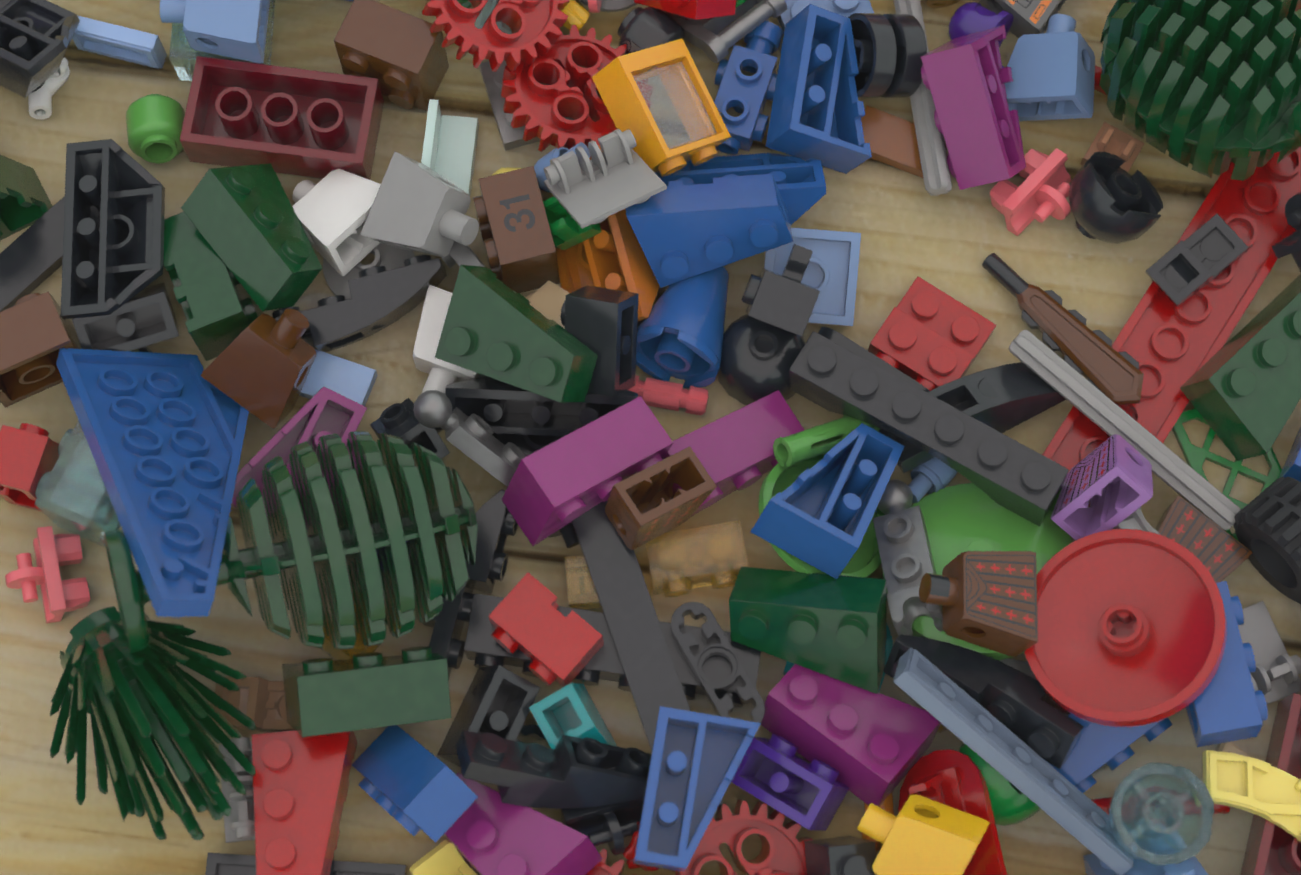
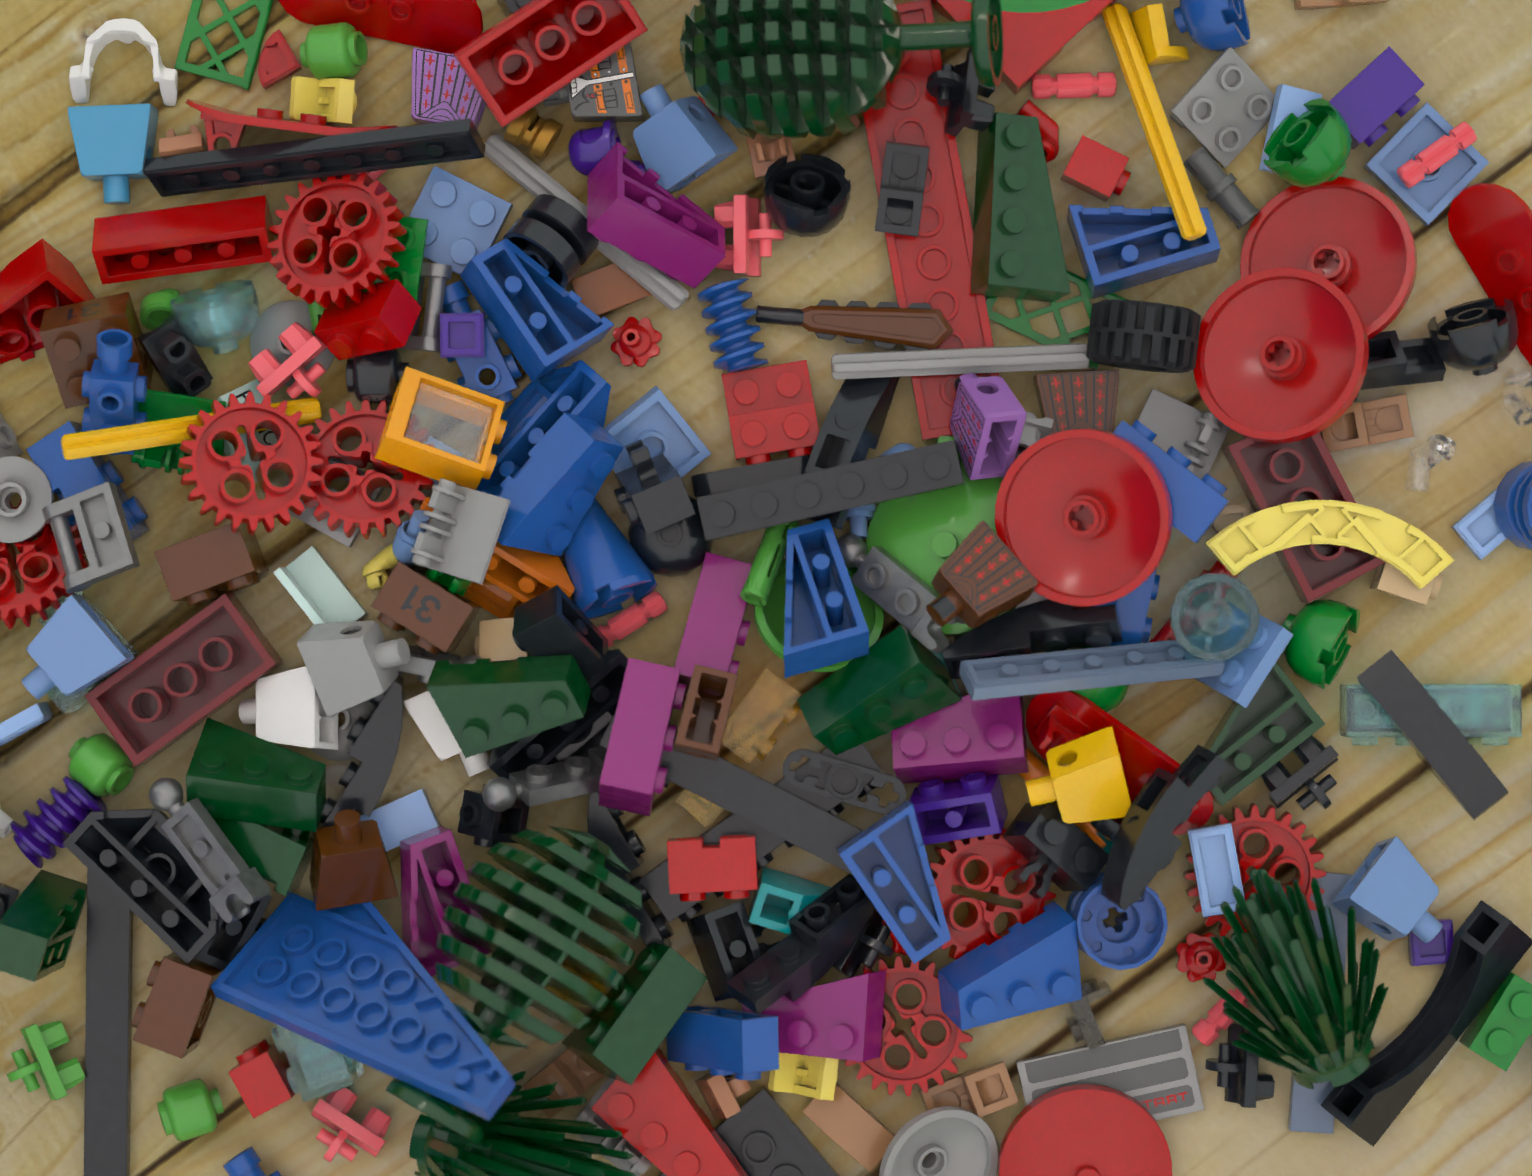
camera: 40 degrees left, 15 degrees up
(53, 134) = (54, 821): none -> dark purple piece
(165, 245) = (208, 852): none -> flat silver plate
(366, 836) = (721, 1094): none -> nougat tile
(746, 59) = (462, 335): none -> dark purple tile
(873, 193) = (636, 342): none -> red plant
(959, 242) = (731, 326): none -> blue piece

